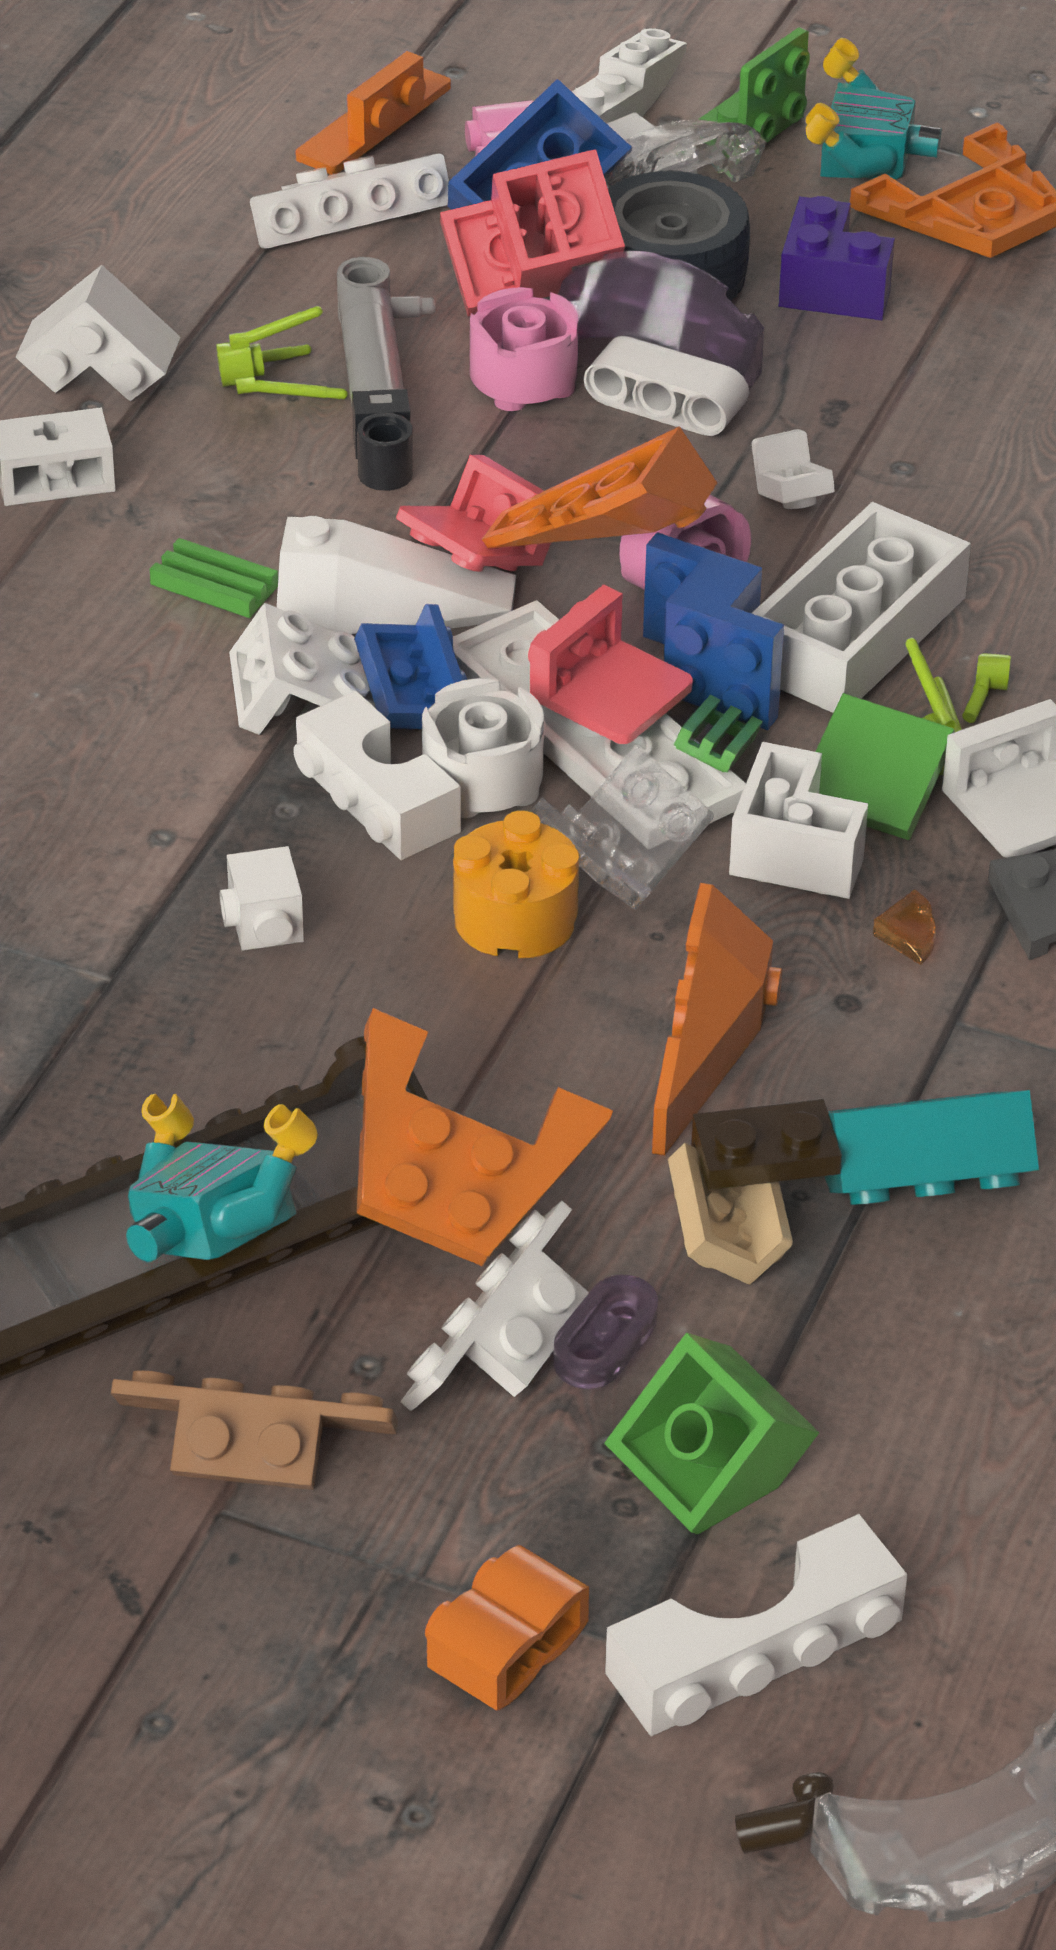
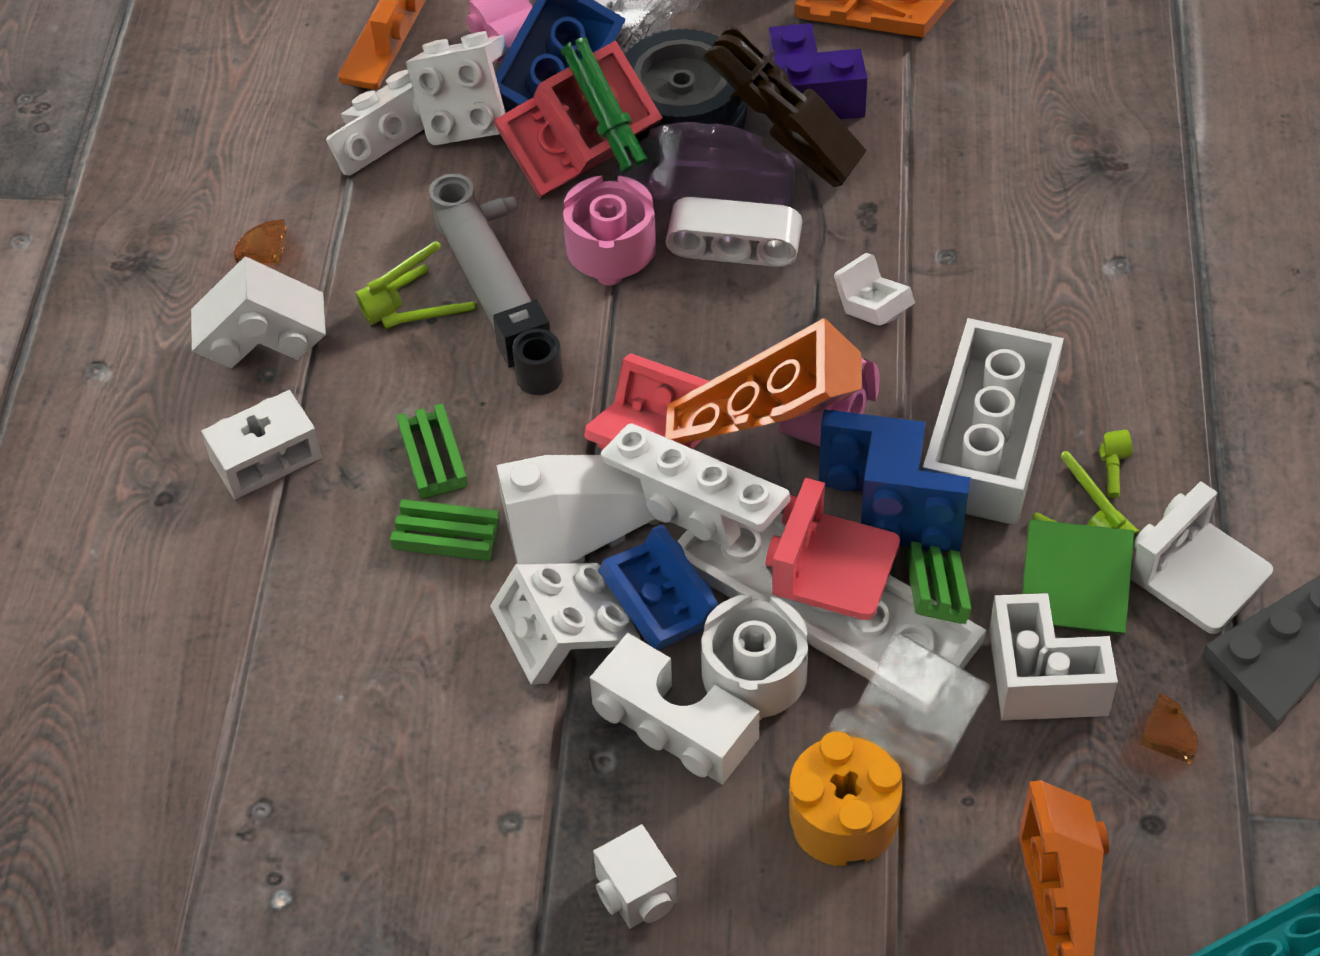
camera: 15 degrees left, 10 degrees up
(148, 283) = (262, 243): none -> clear orange tile
(234, 483) = (424, 422): none -> bright green tile
(414, 179) = (458, 87): none -> white bracket
(485, 579) = (694, 487): none -> white bracket
(561, 231) = (613, 123): none -> green pin
(788, 291) = (799, 120): none -> dark brown arm

